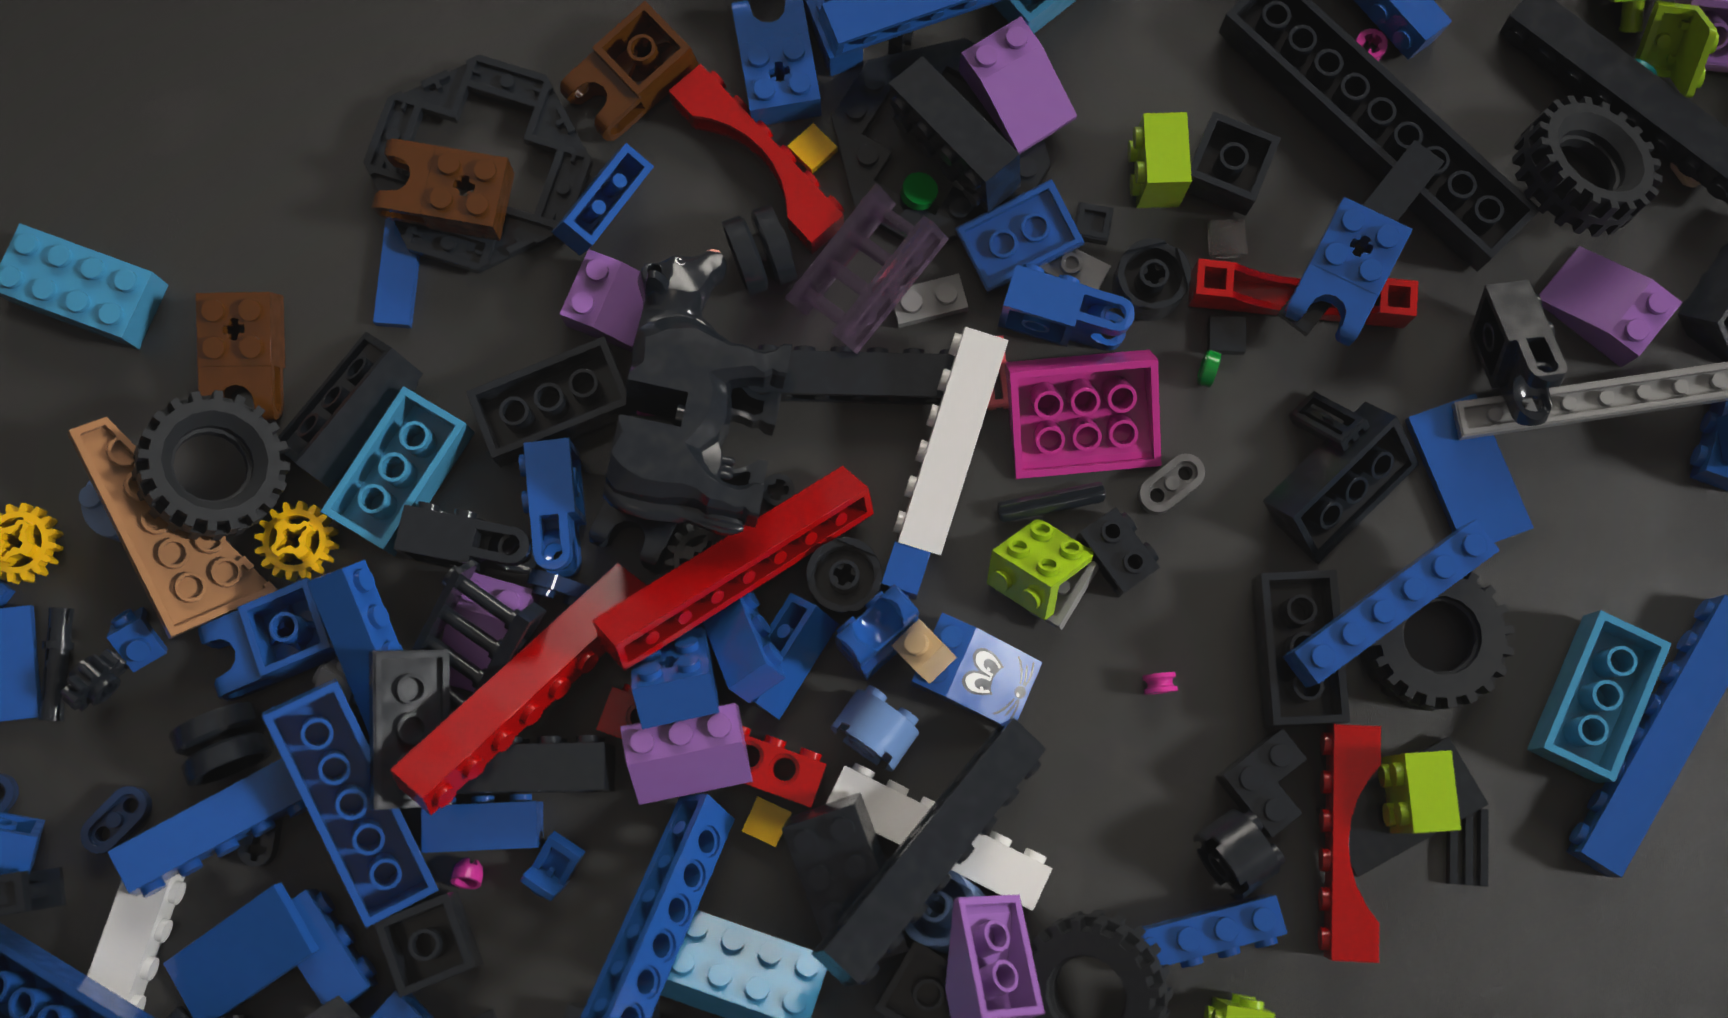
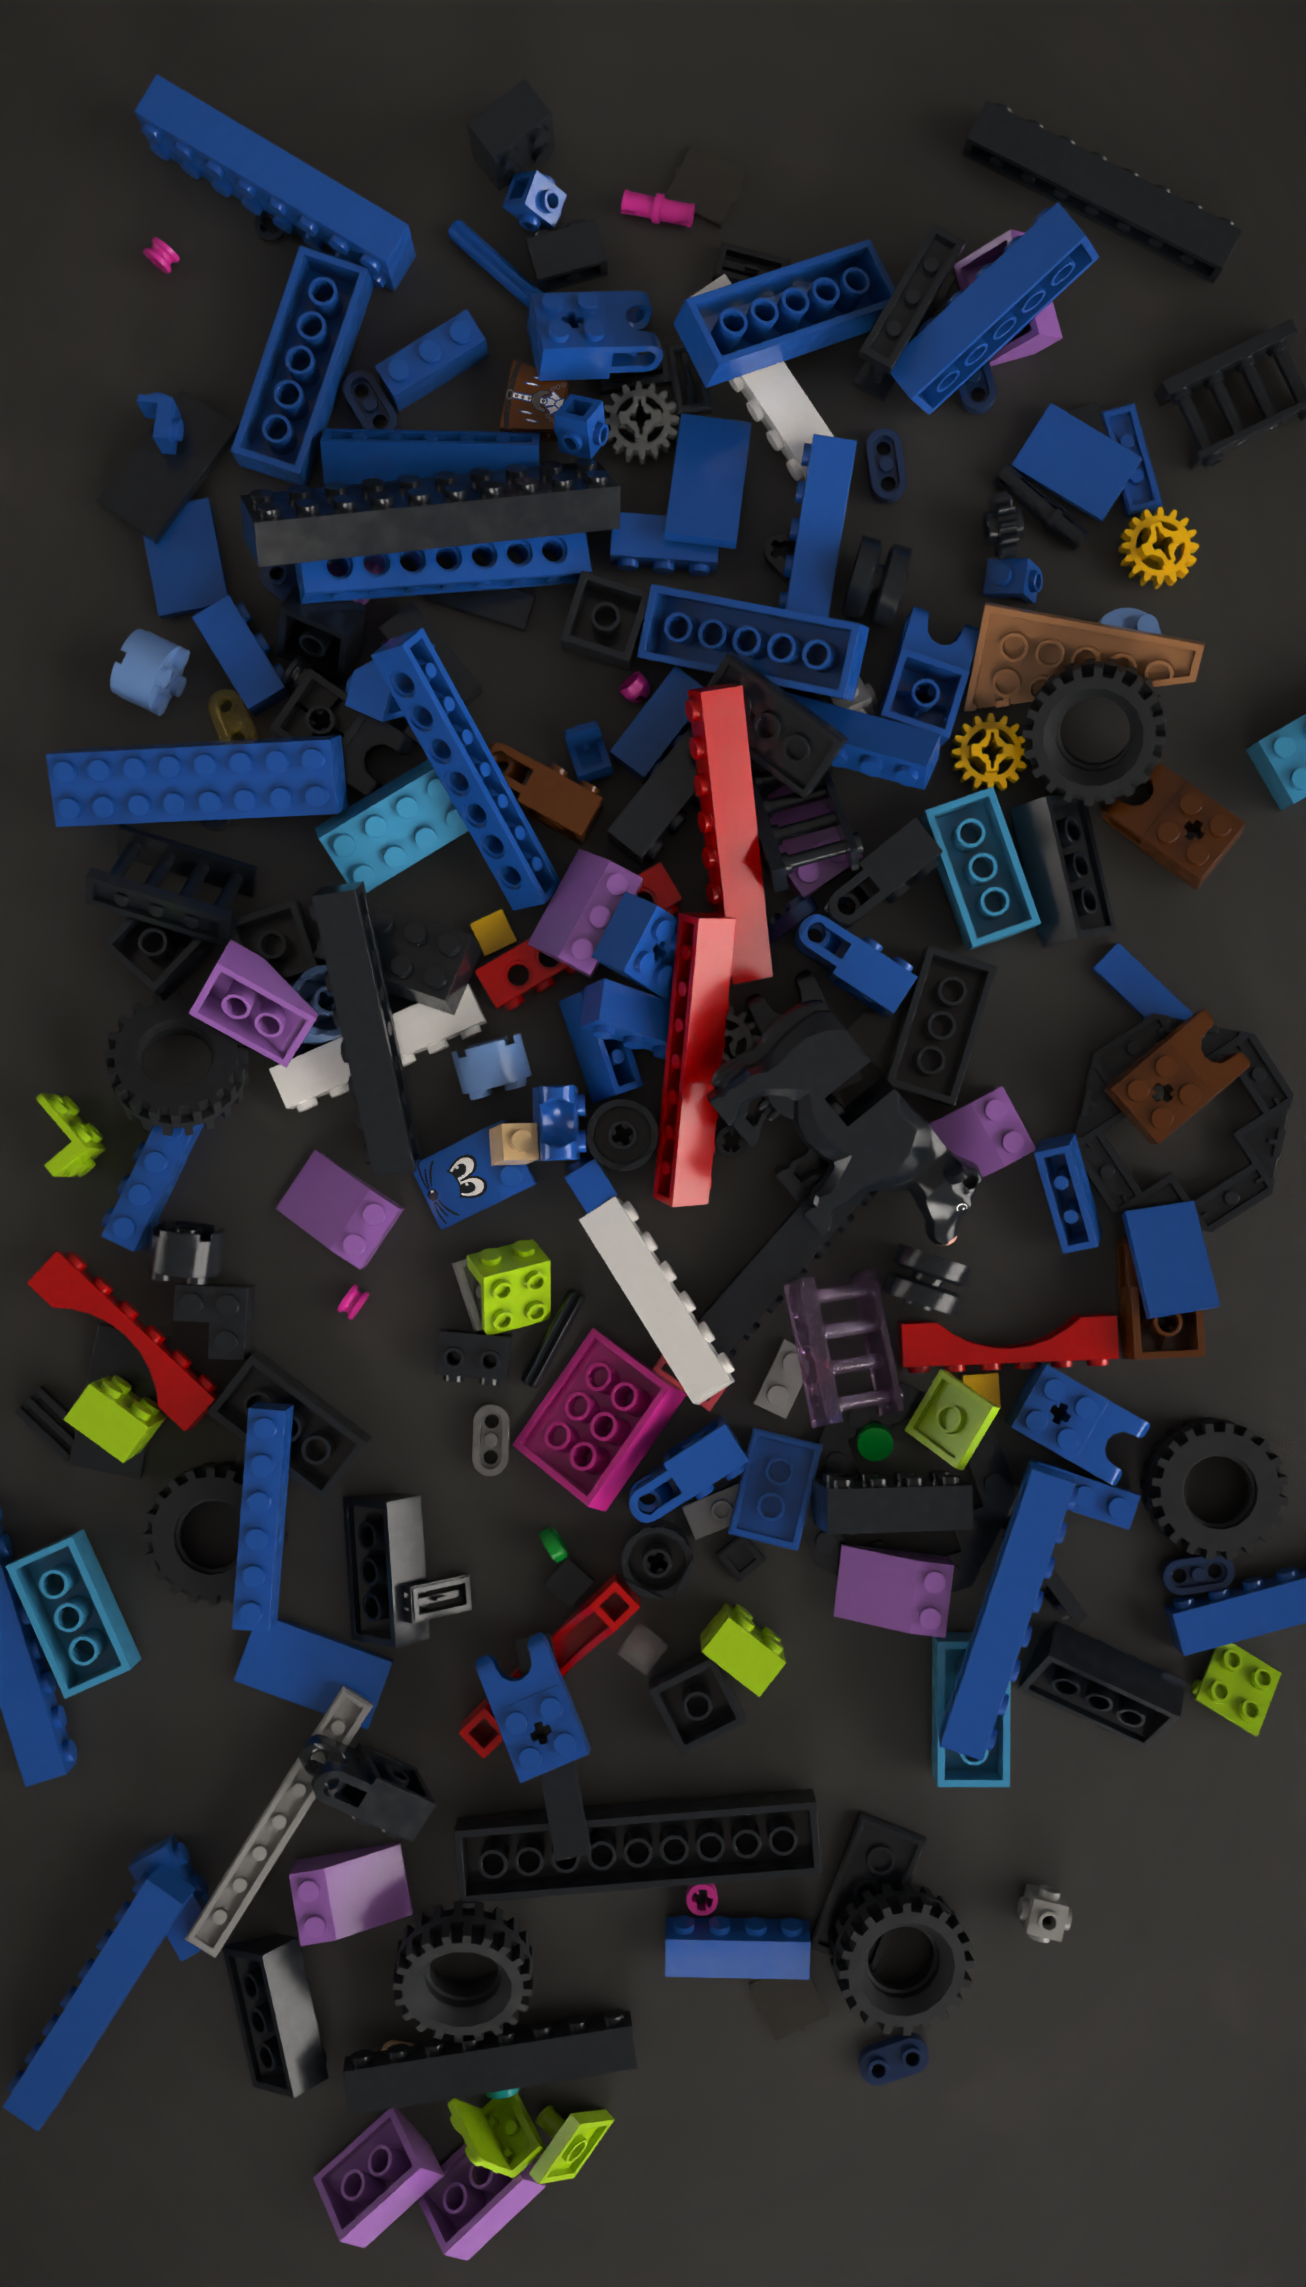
camera: 130 degrees right, 10 degrees up
(591, 83) = (1170, 1259): none -> blue tile
(613, 865) = (549, 795): none -> reddish brown brick
(852, 143) = (952, 1419): none -> lime tile
(1096, 757) = (339, 1209): none -> medium lavender slope

